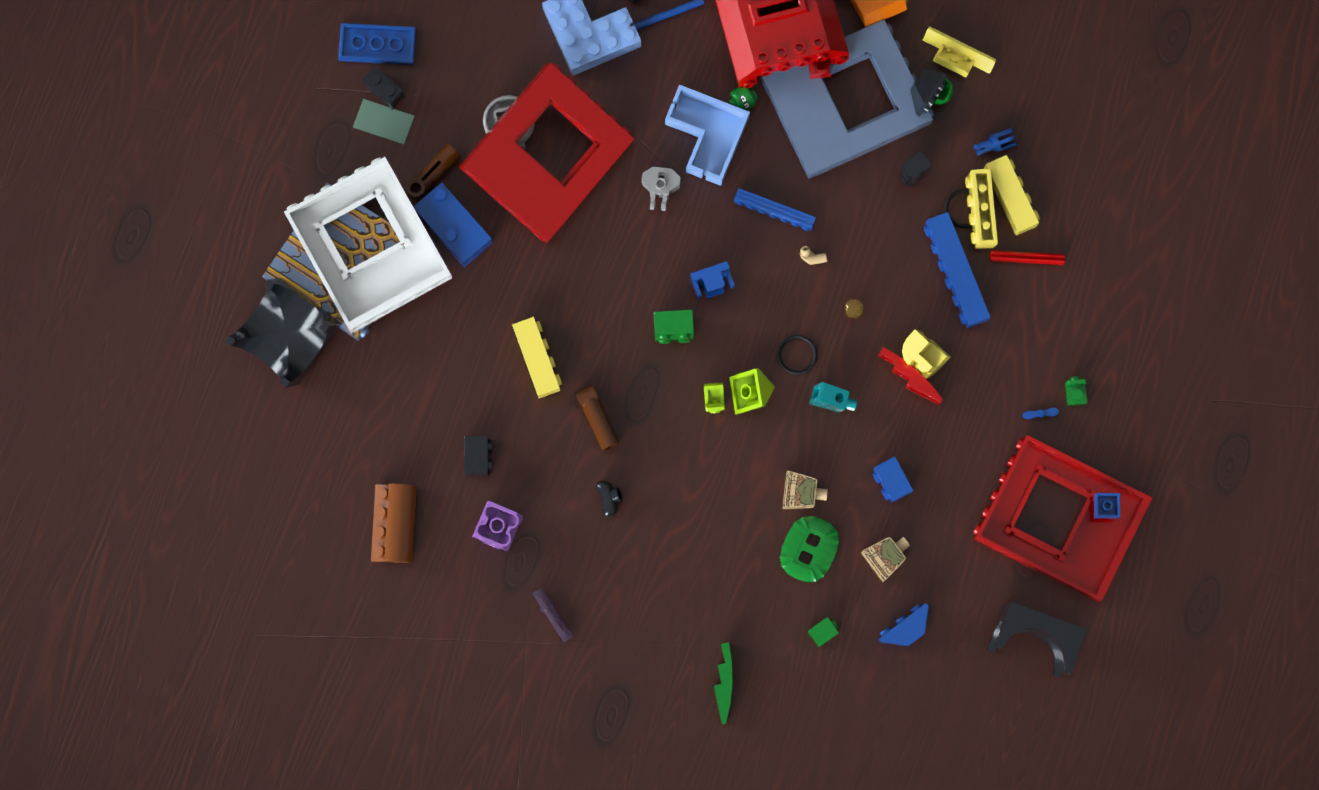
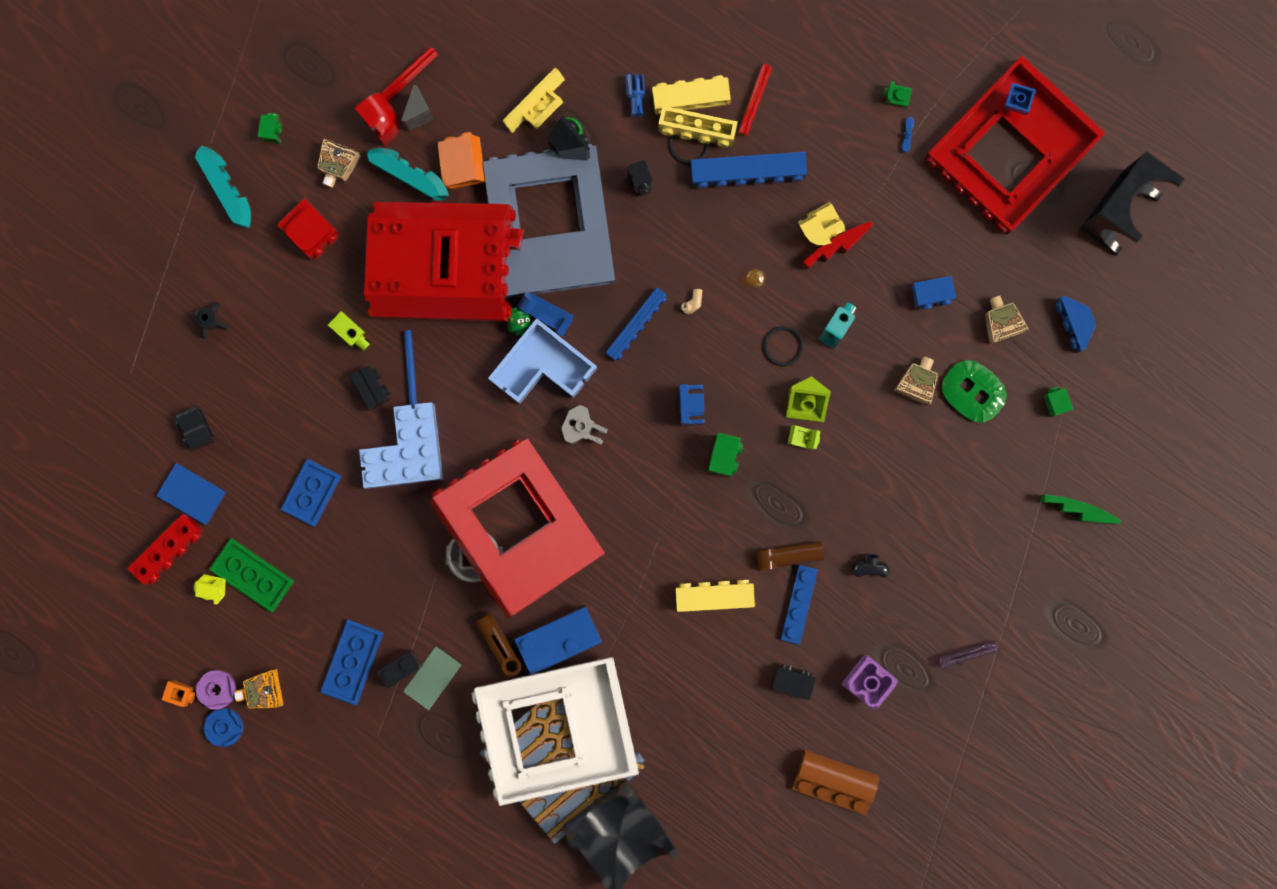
camera: 70 degrees left, 5 degrees up
(553, 441) = (799, 604): none -> blue plate
(759, 120) = (546, 312): none -> blue leg

